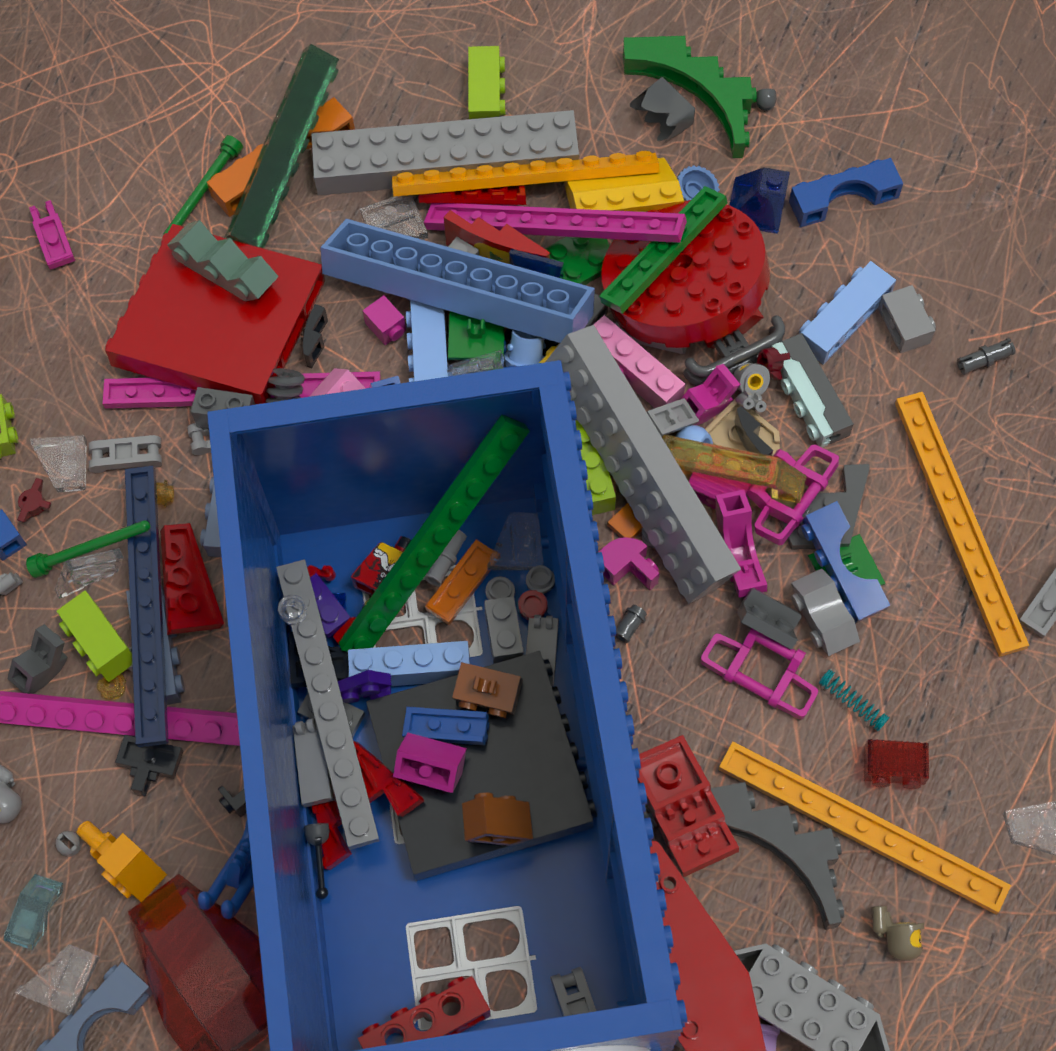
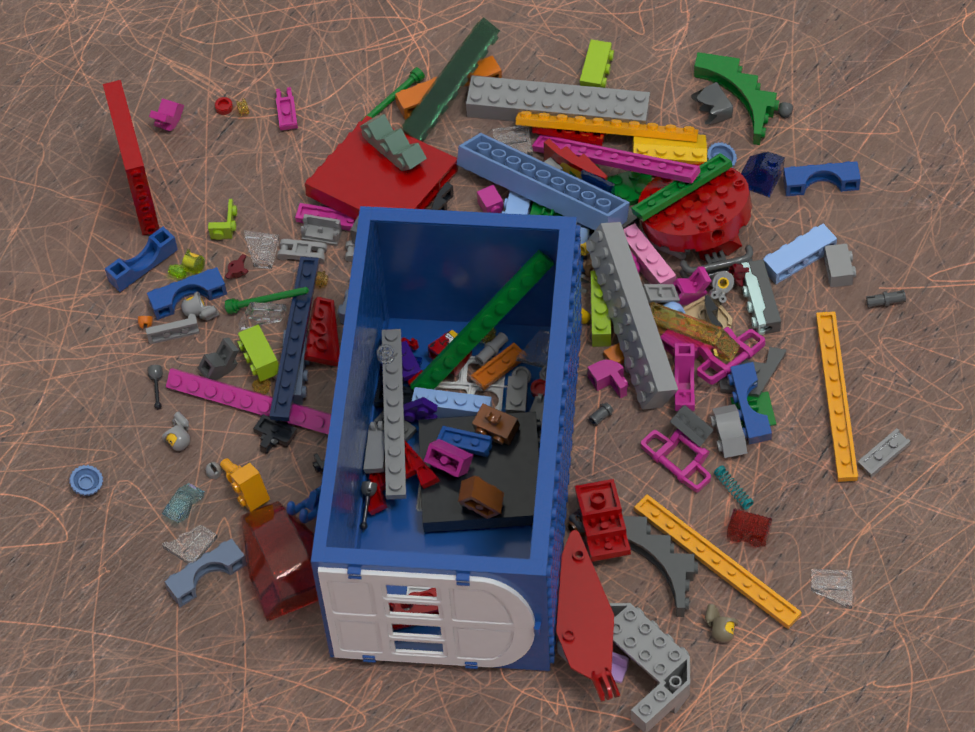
camera: 15 degrees right, 10 degrees down
(146, 415) = (321, 230): none -> light grey hinge

